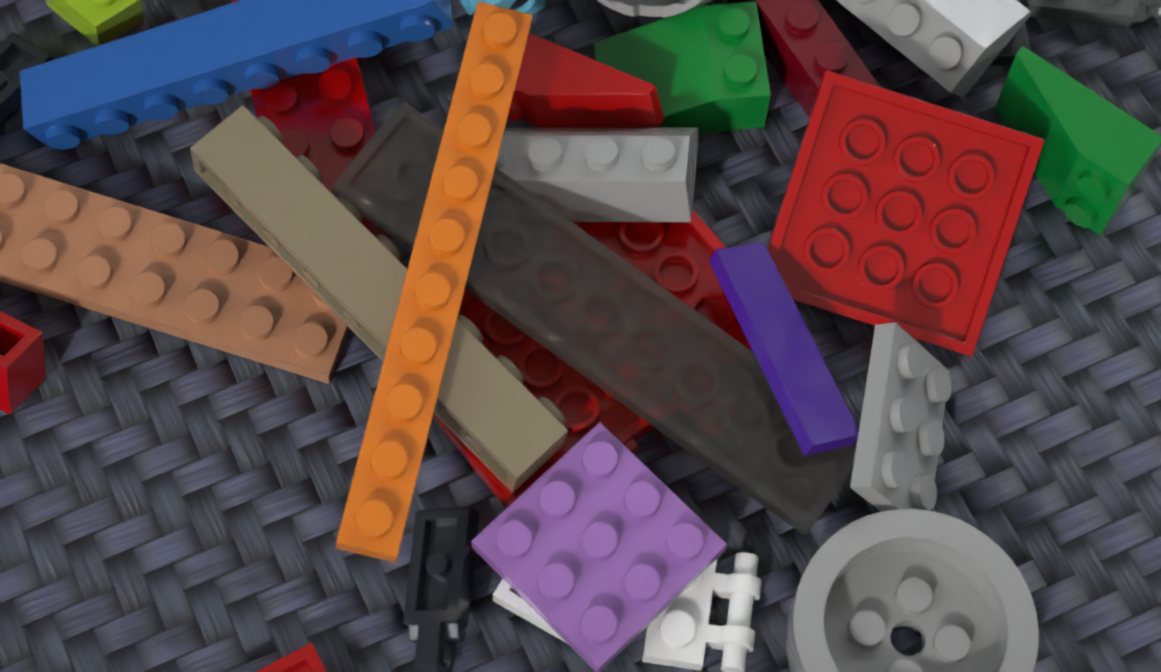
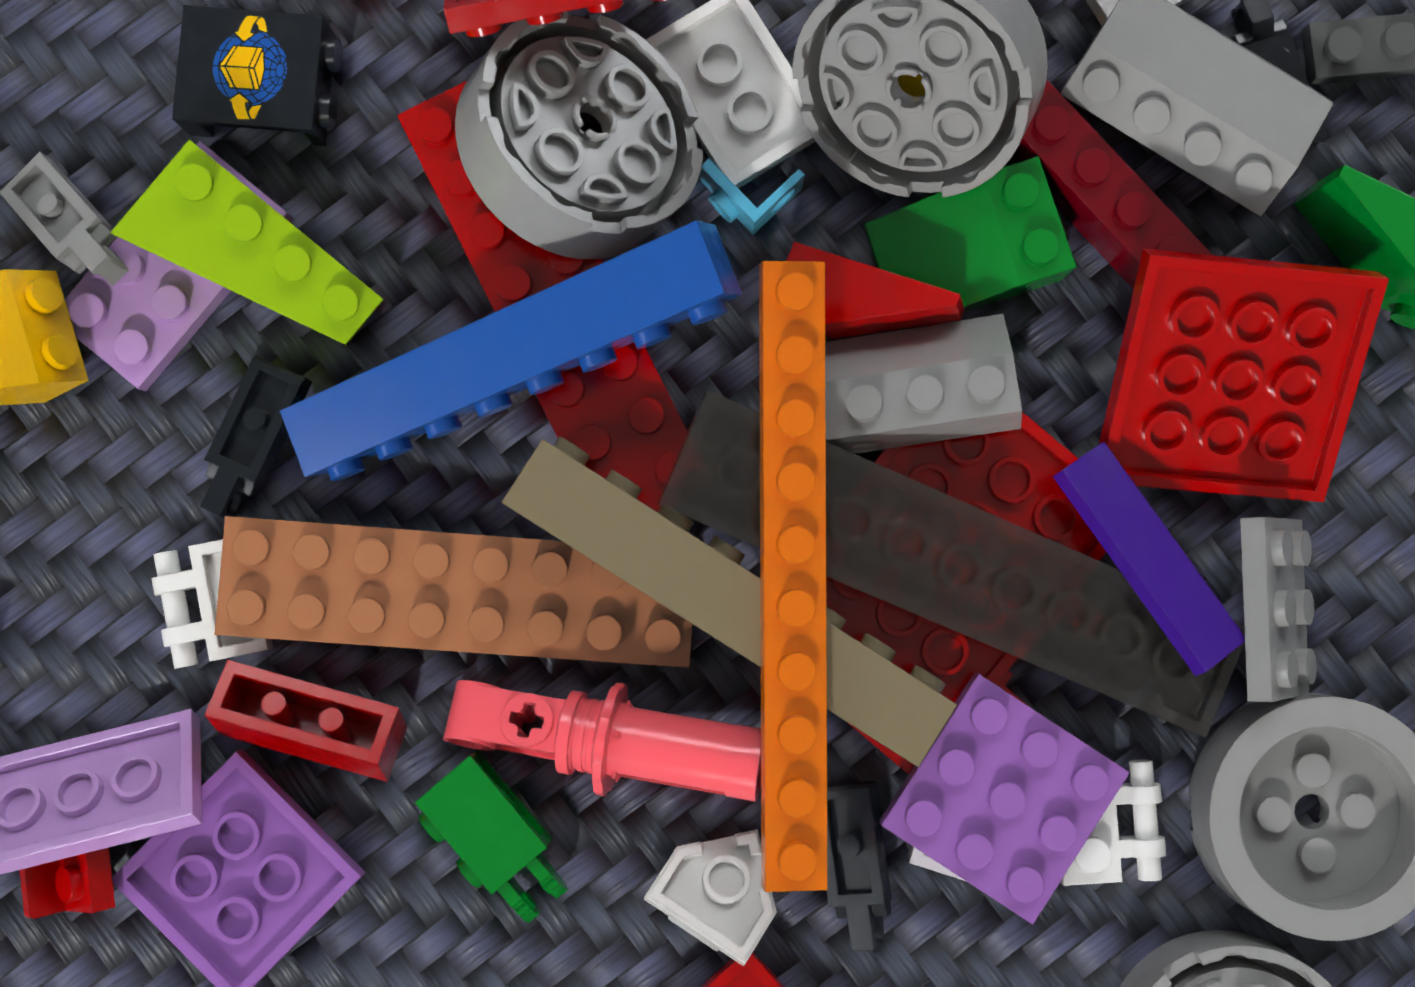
camera: 10 degrees left, 20 degrees up
(92, 476) = (490, 833): none -> green hinge
(223, 408) = (609, 739): none -> coral piece
(293, 587) = (717, 893): none -> white plate

